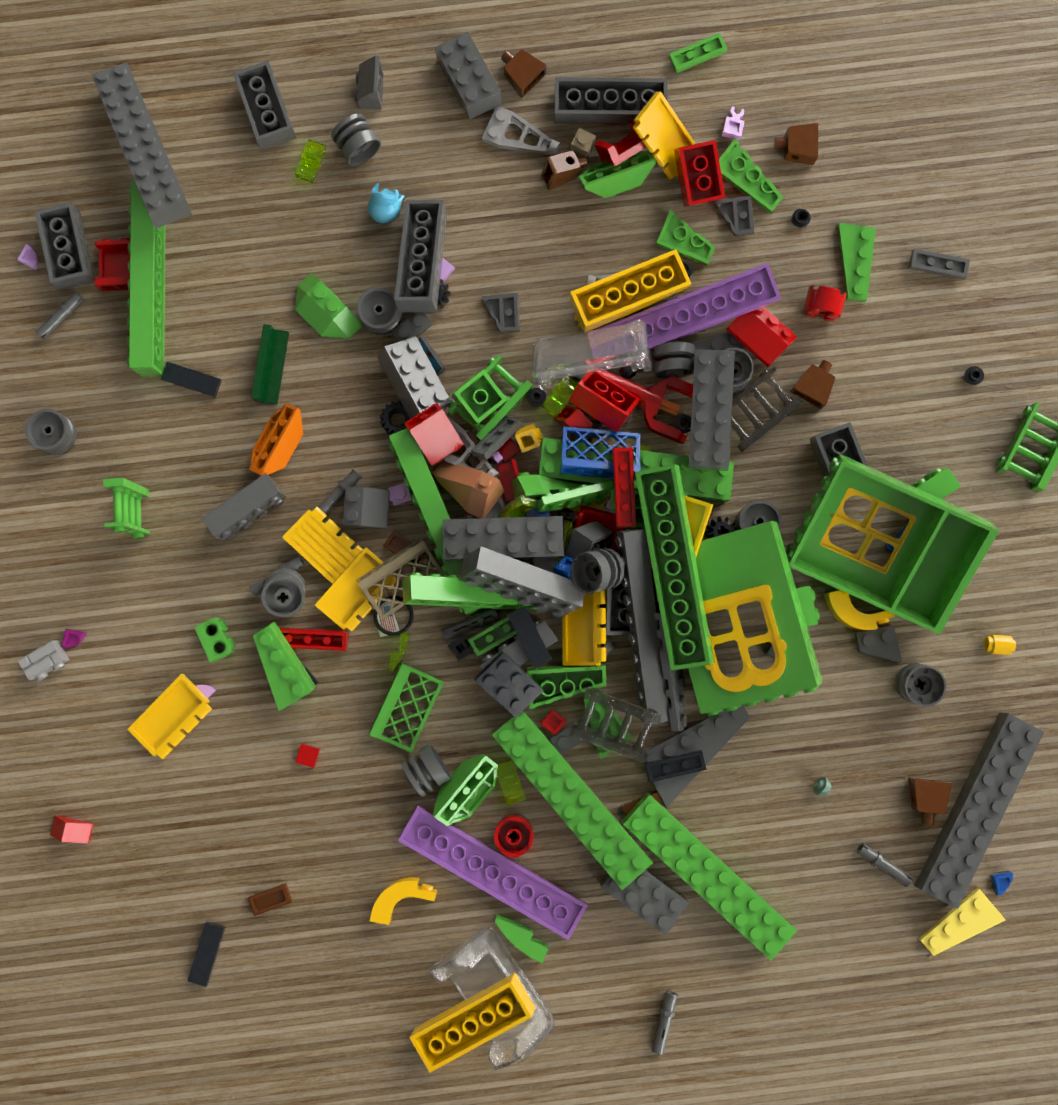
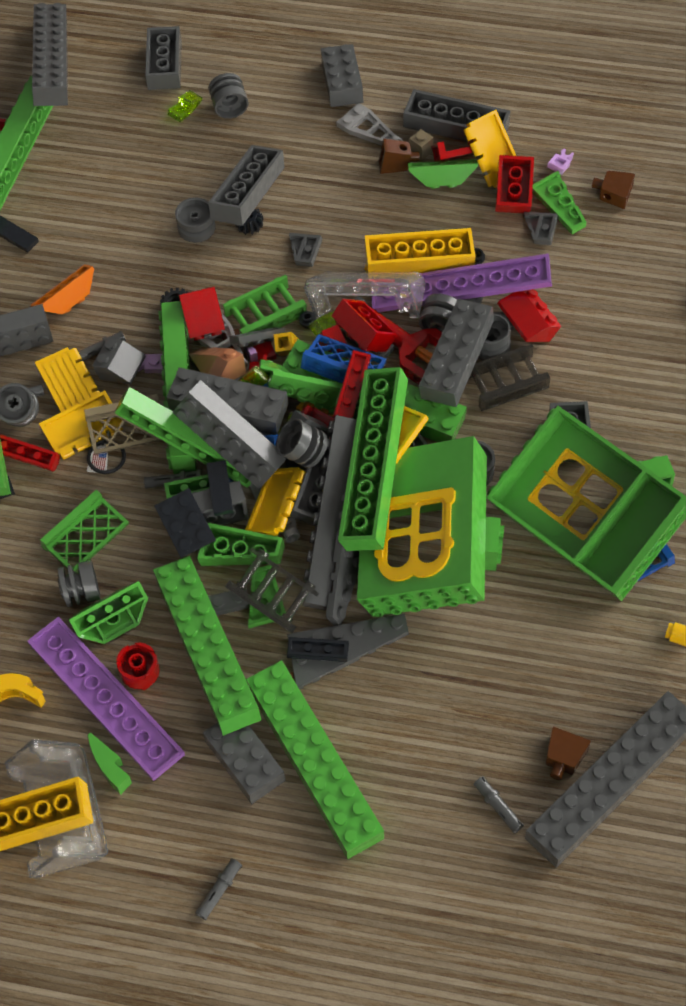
camera: 20 degrees right, 25 degrees down
(270, 365) = (83, 239): dark green panel -> none
(324, 310) = (150, 211): bright green wedge -> none
(370, 84) = (257, 63): dark grey slope -> none
(384, 205) = (232, 146): medium azure hair -> none
(397, 657) = (101, 484): clear neon green slope -> none
(412, 327) = (218, 242): dark grey plate -> none
(412, 376) = (203, 267): brick -> none
(432, 356) = (224, 266): slope -> none
(446, 269) = (265, 206): lavender tile -> none
(460, 647) = (154, 497): black tile -> none
(478, 396) = (252, 296): bright green brick -> none
(510, 783) = (154, 623): clear neon green slope -> none
(523, 71) = (391, 84): reddish brown torso -> none
(553, 722) = (216, 583): red tile -> none
(627, 372) = (398, 318): black plate -> none
(689, 244) = (487, 235): bright green wing -> none
(697, 53) = (547, 105): bright green plate -> none
(801, 213) = (598, 243): black plate -> none
(815, 384) = (567, 370): reddish brown torso -> none
(822, 786) = (458, 712): sand green plate -> none
(824, 302) = (596, 307): red brick -> none
(844, 612) = (542, 573): yellow arch -> none
(857, 252) = (640, 286): bright green wing -> none
(879, 643) = (559, 602): dark grey wing -> none
(930, 690) = (589, 632): dark grey wheel -> none
(971, 918) = (570, 885): light yellow wing -> none
(1001, 882) = (618, 860): blue tile -> none

